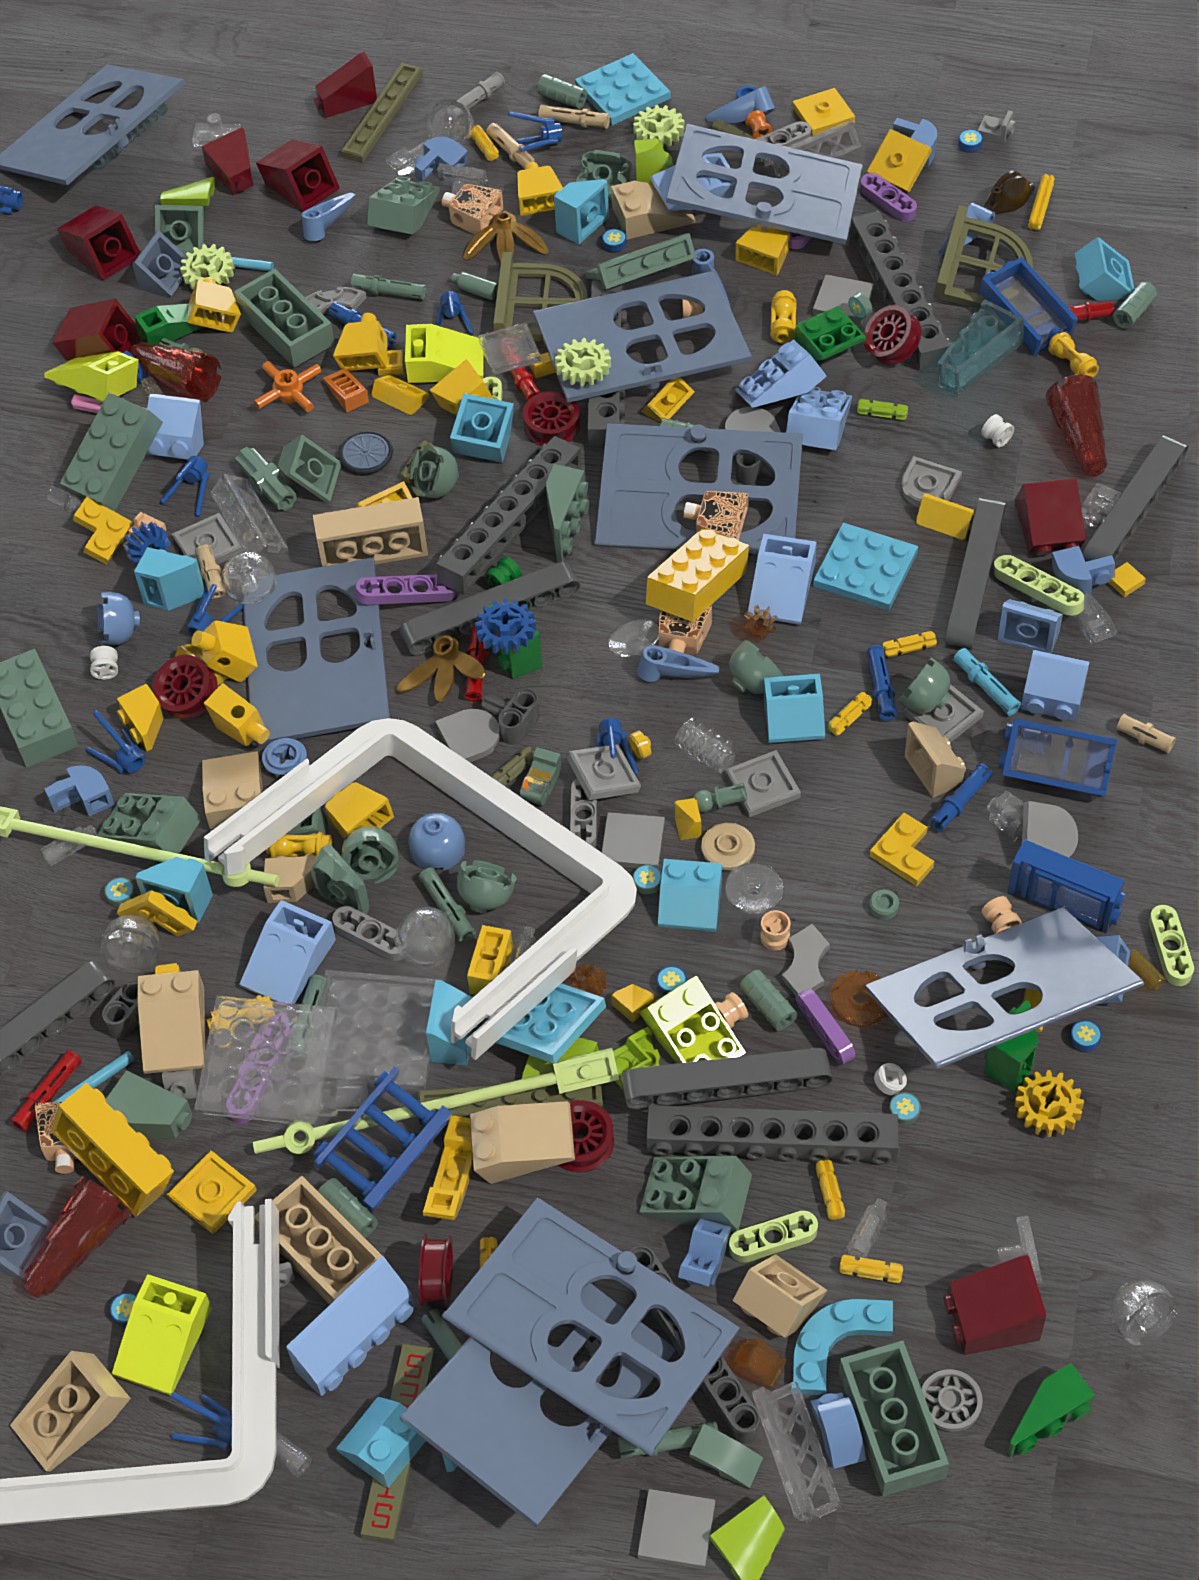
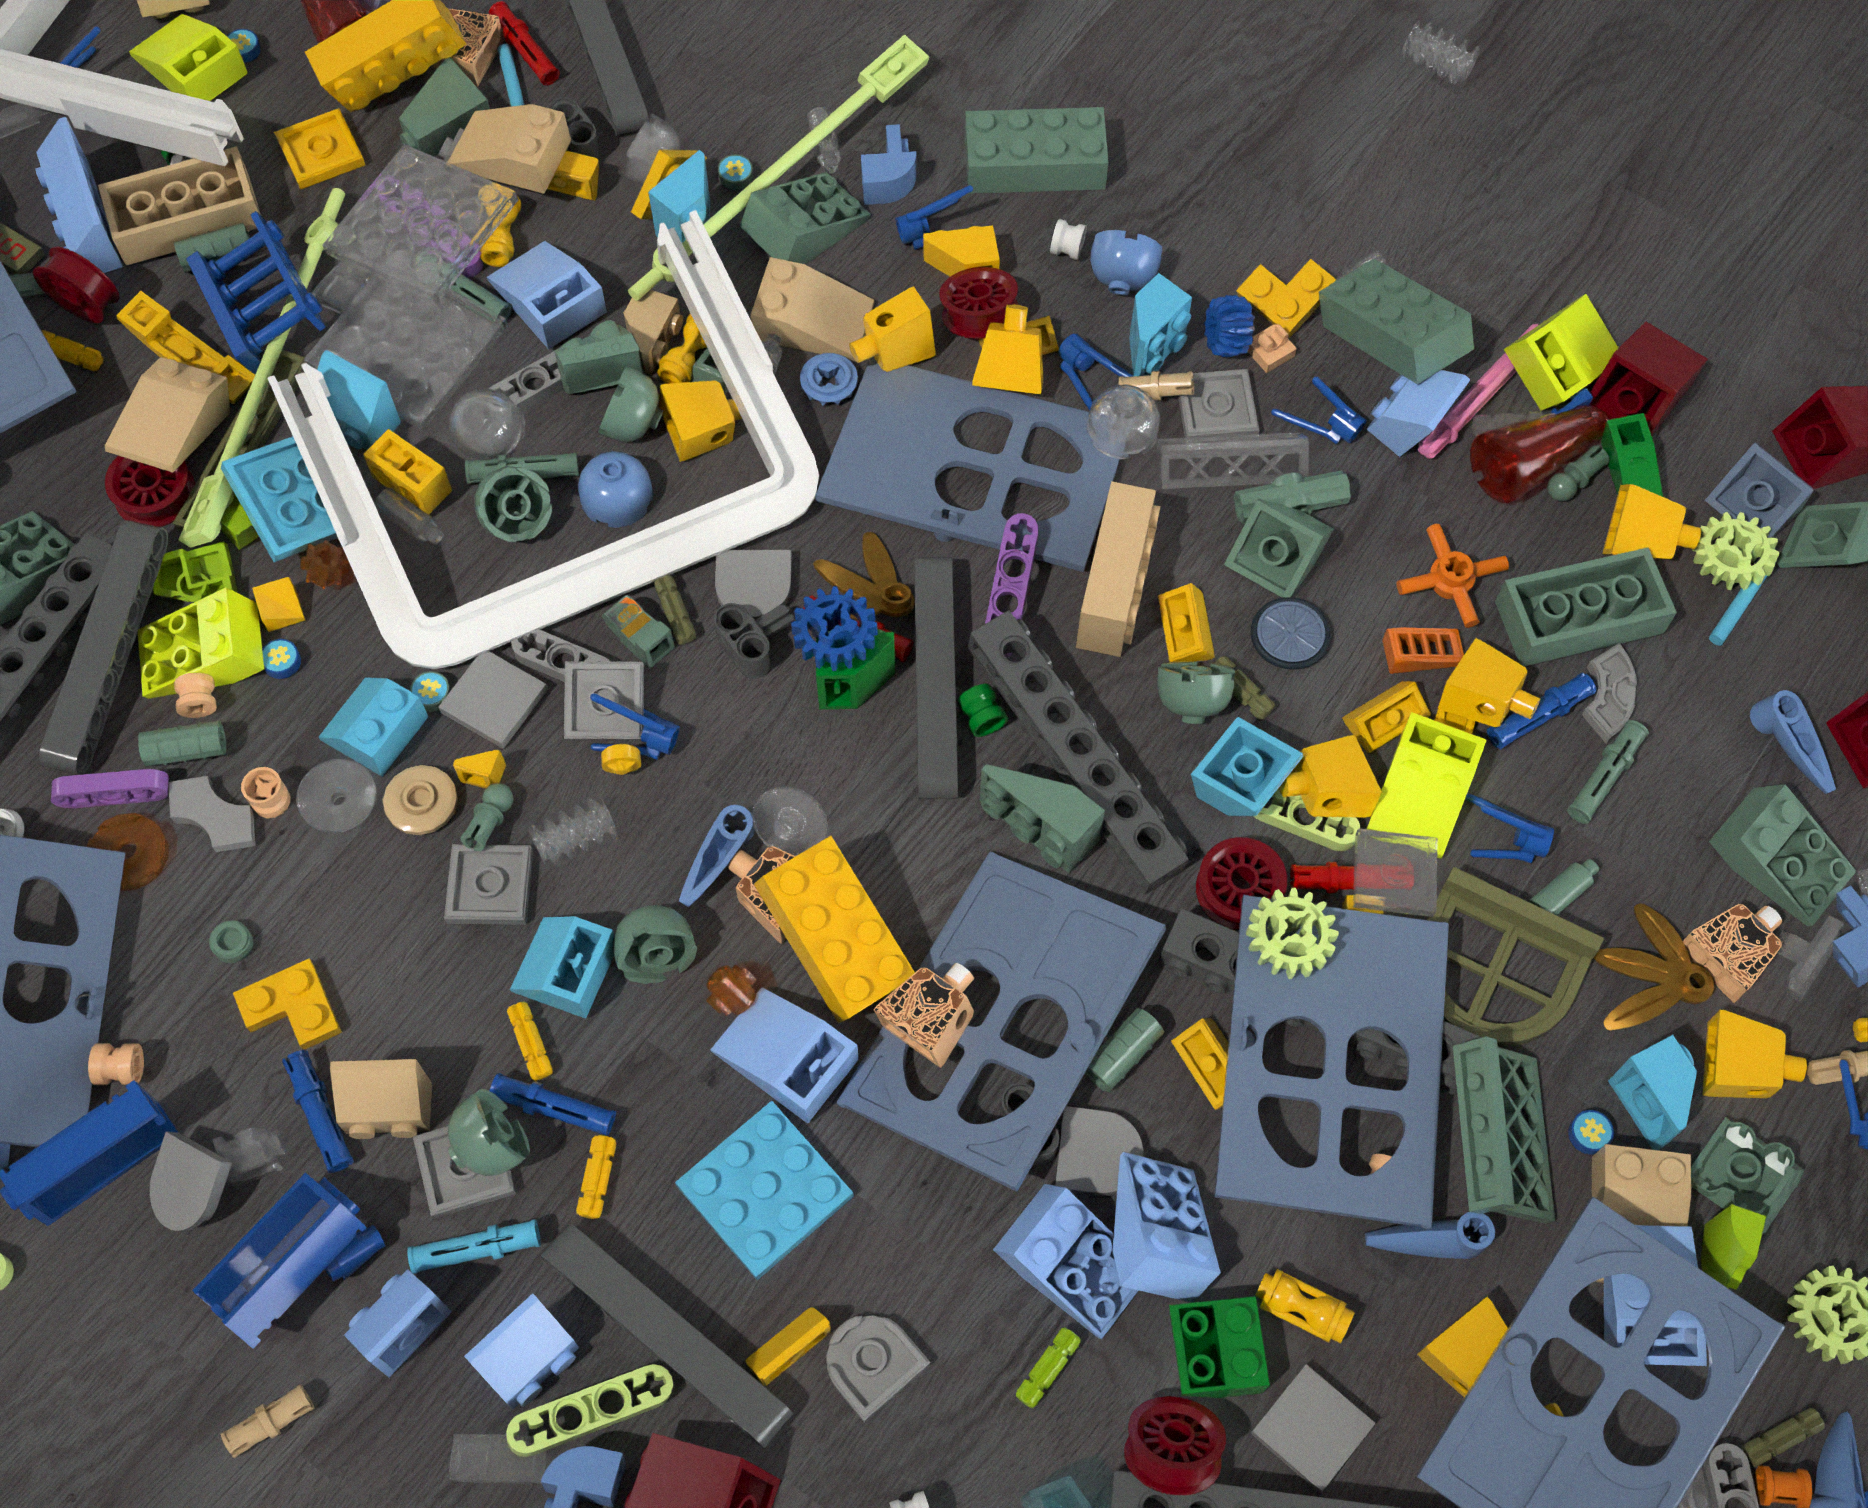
camera: 110 degrees right, 10 degrees up
(860, 305) = (1264, 1429): tile -> none

